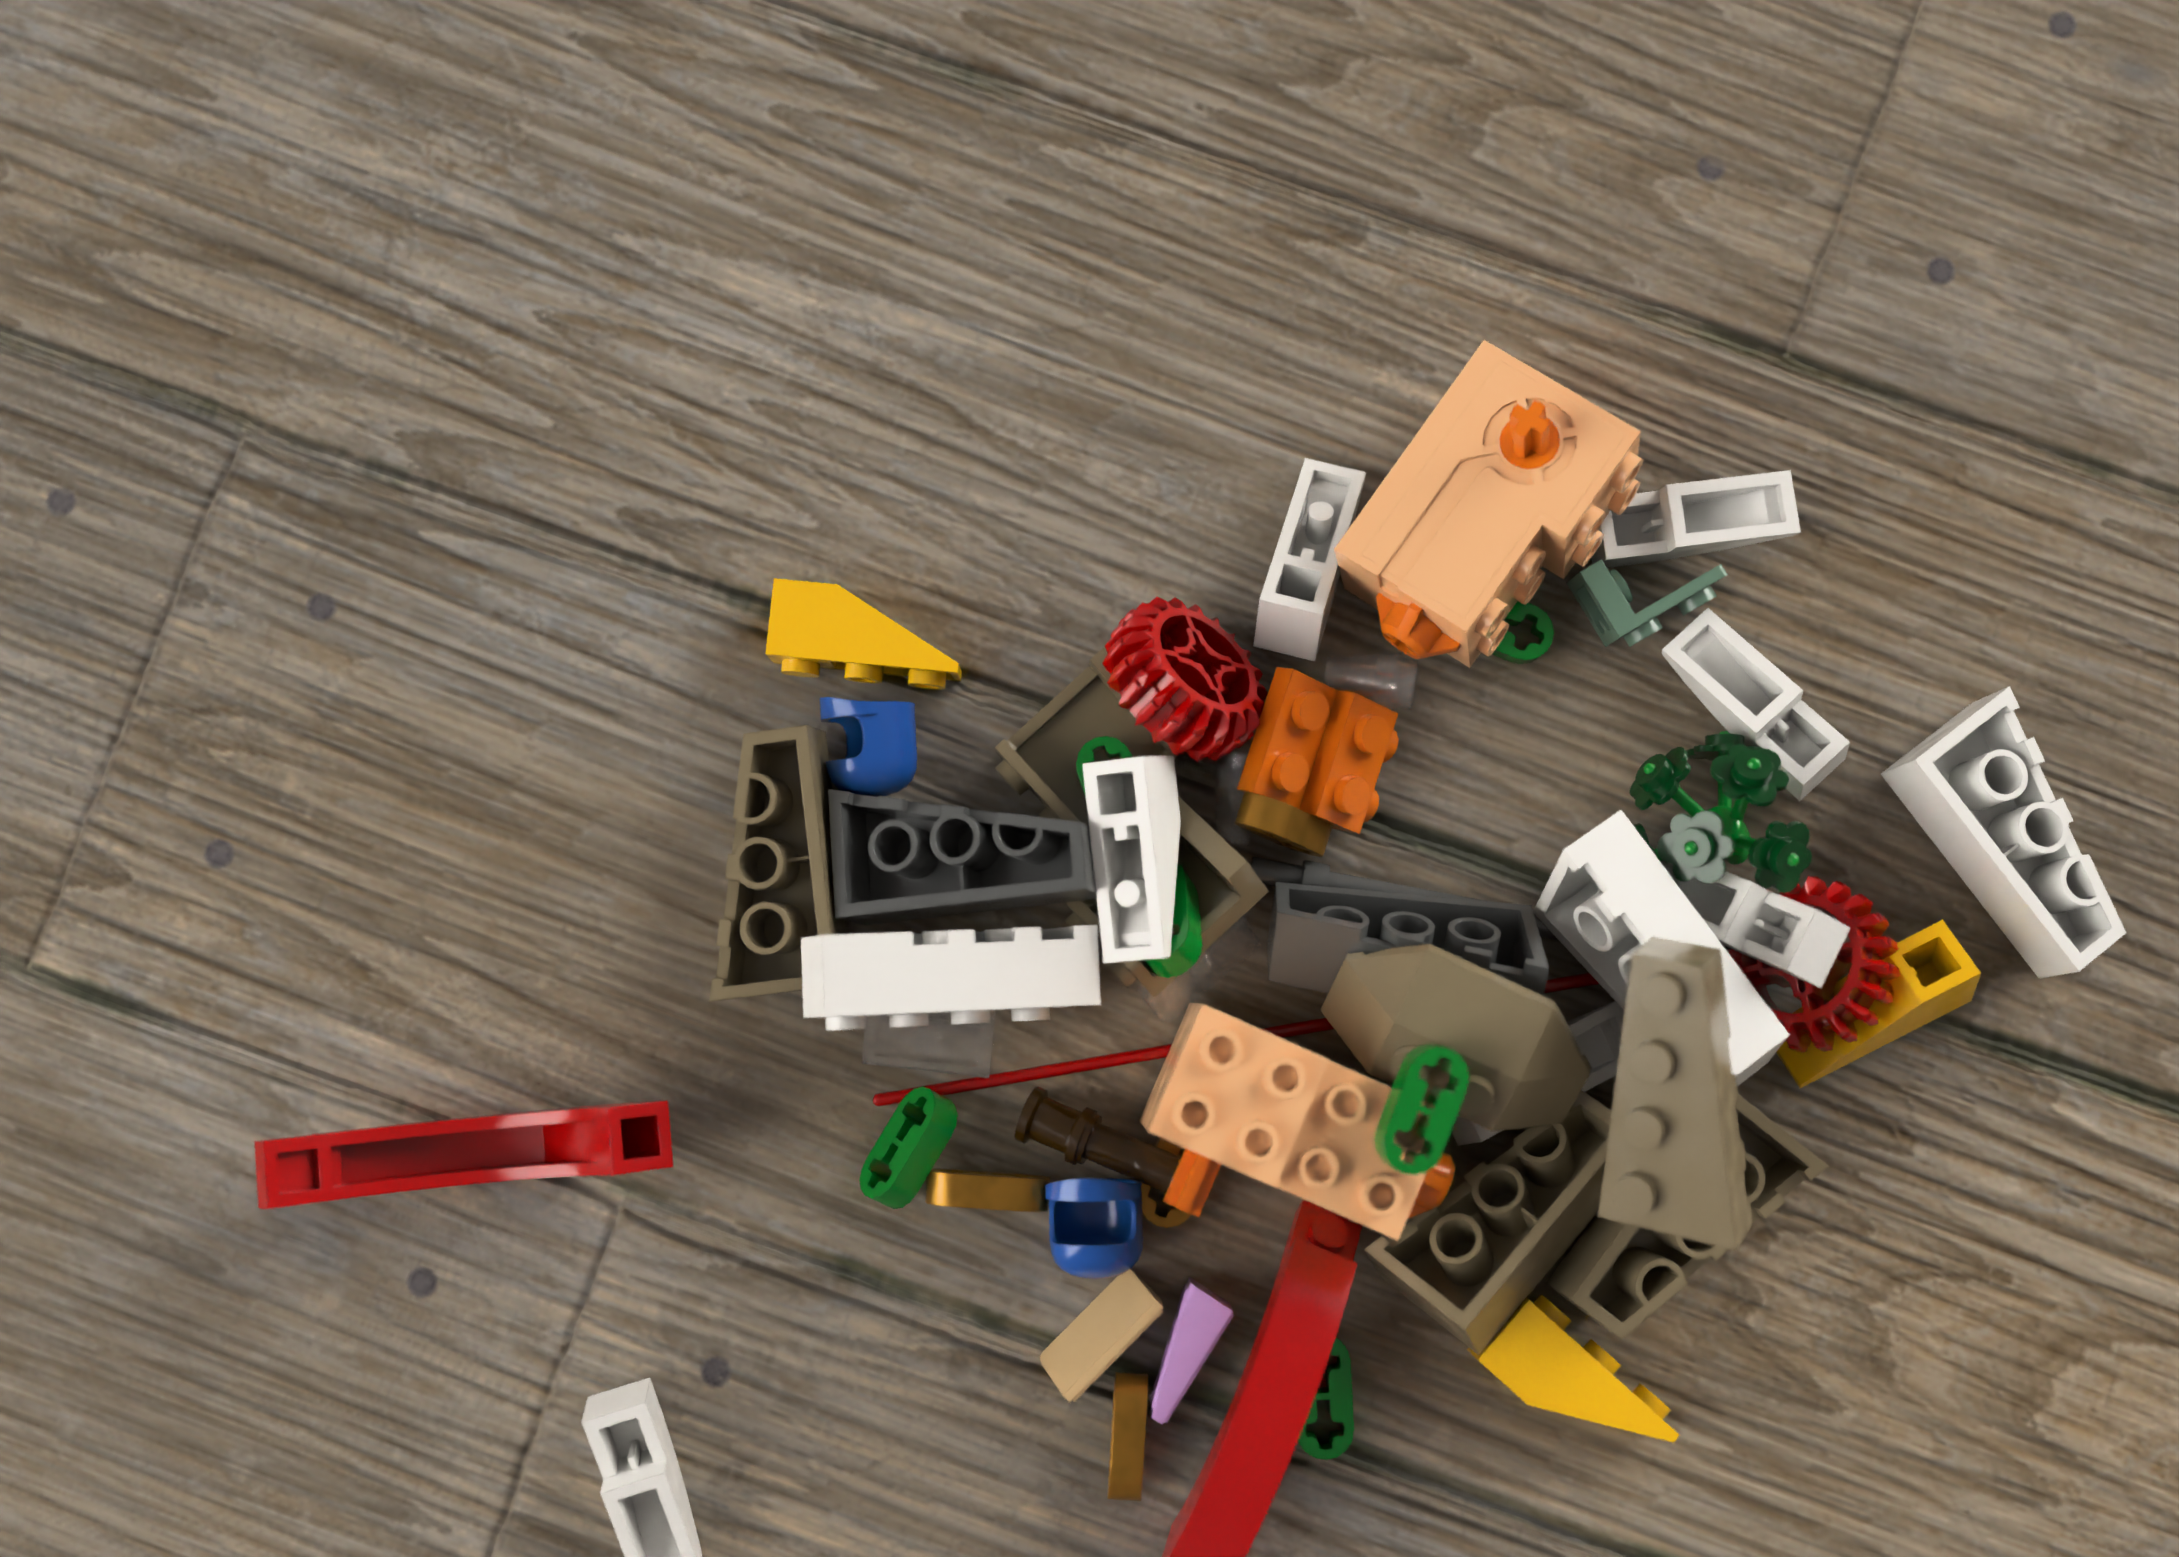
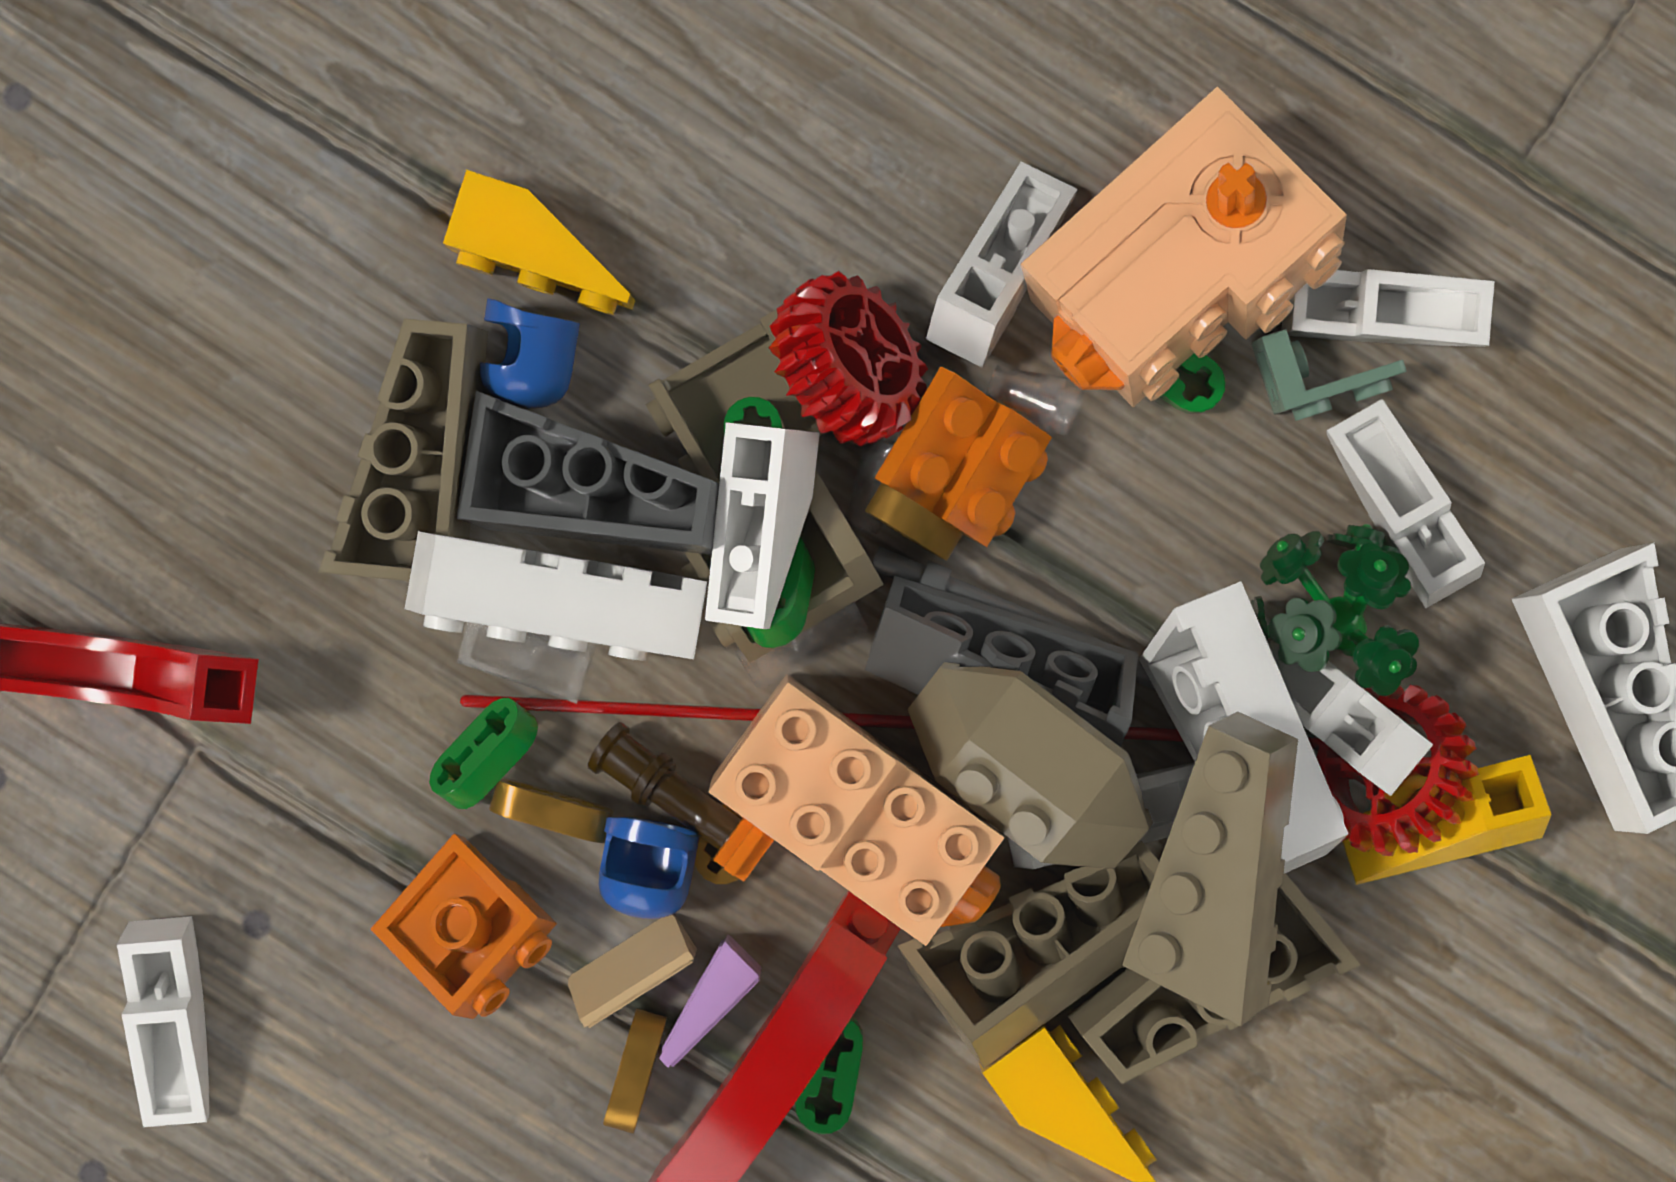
camera: 15 degrees right, 5 degrees up
(927, 1330) = (465, 930): none -> orange plate
(1437, 1114) = (987, 836): green beam -> none

